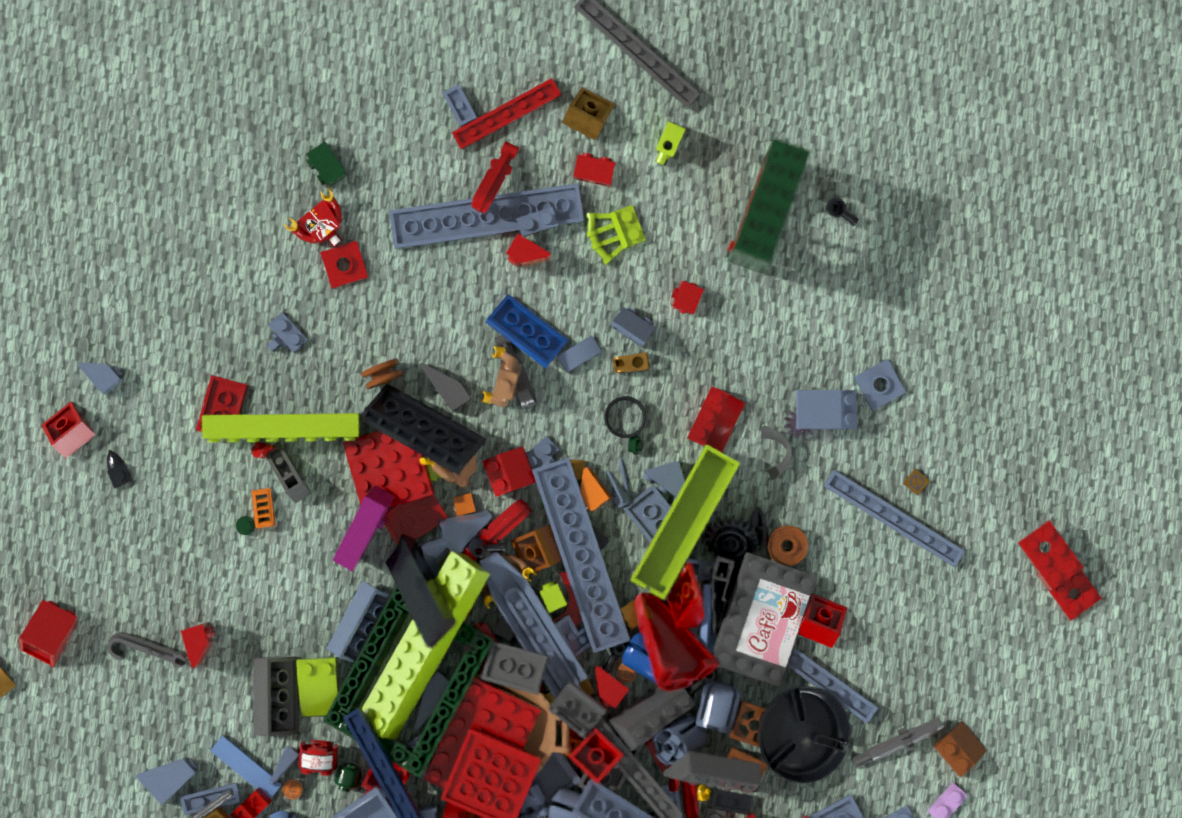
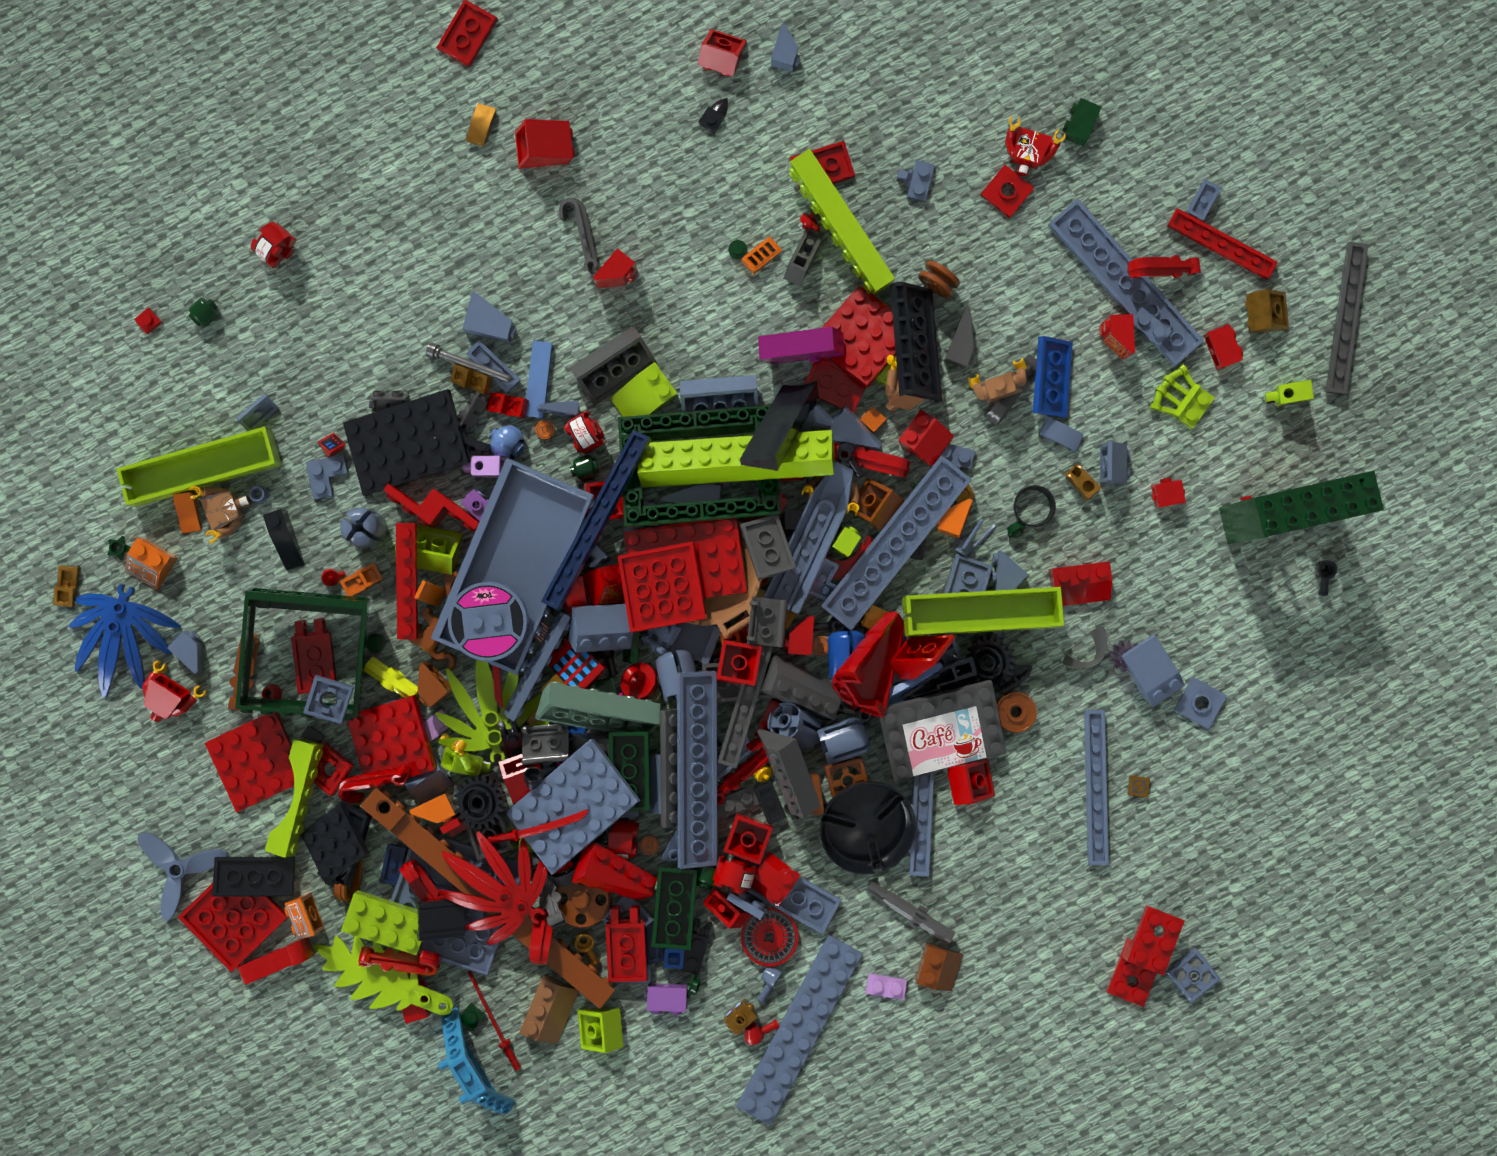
camera: 55 degrees right, 0 degrees up
(1101, 539) = (1193, 975): none -> sand blue piece

